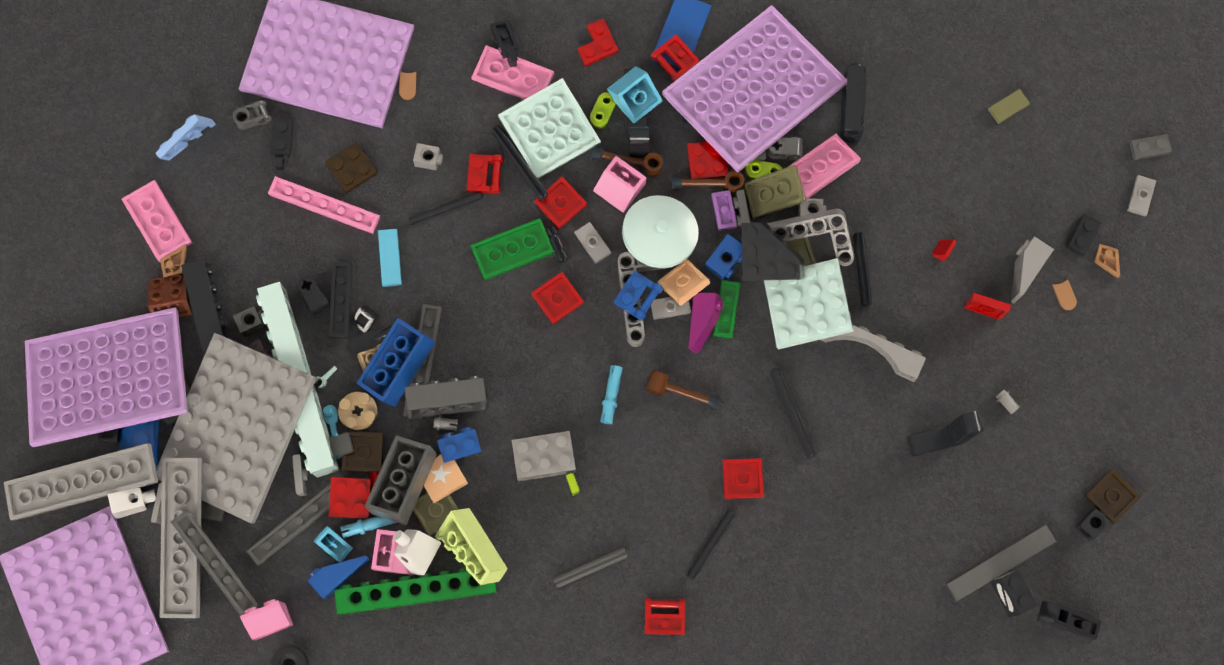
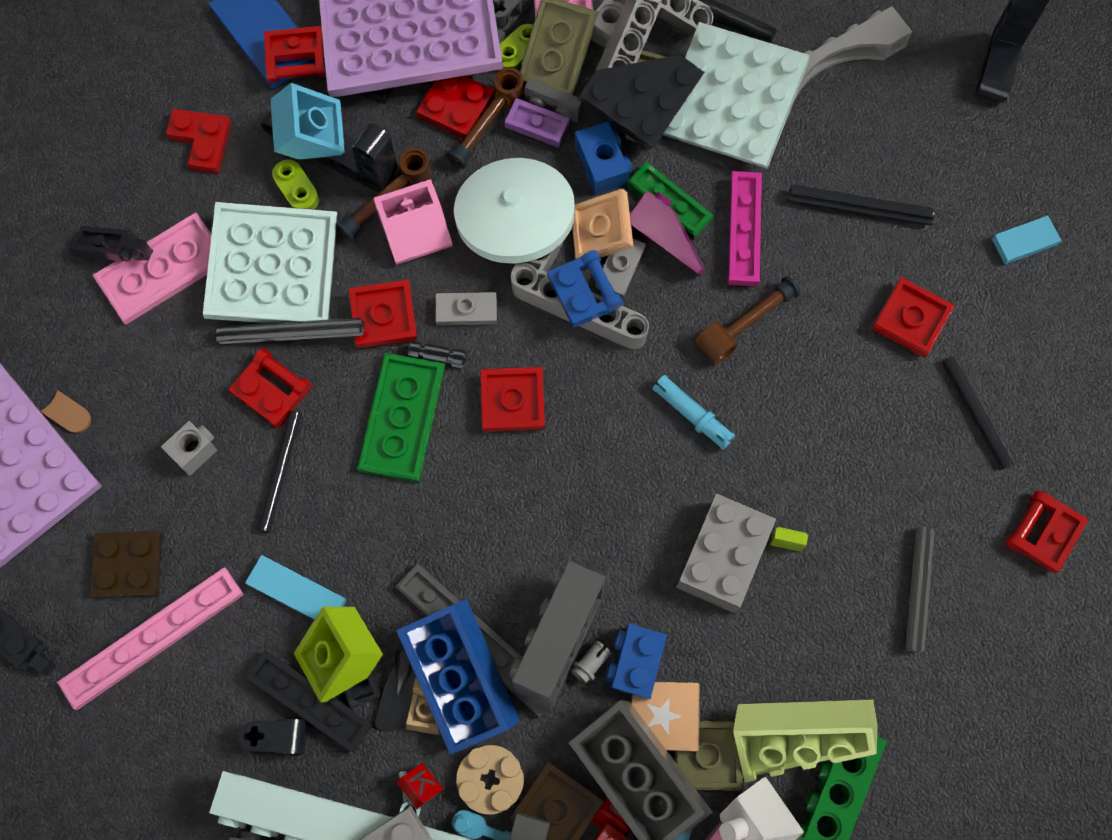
camera: 55 degrees left, 5 degrees down
(333, 379) = (419, 785): none -> red tile
(371, 297) = (337, 651): none -> lime slope
(735, 358) = (745, 229): none -> dark pink plate
(833, 515) = (1026, 240): none -> medium azure tile

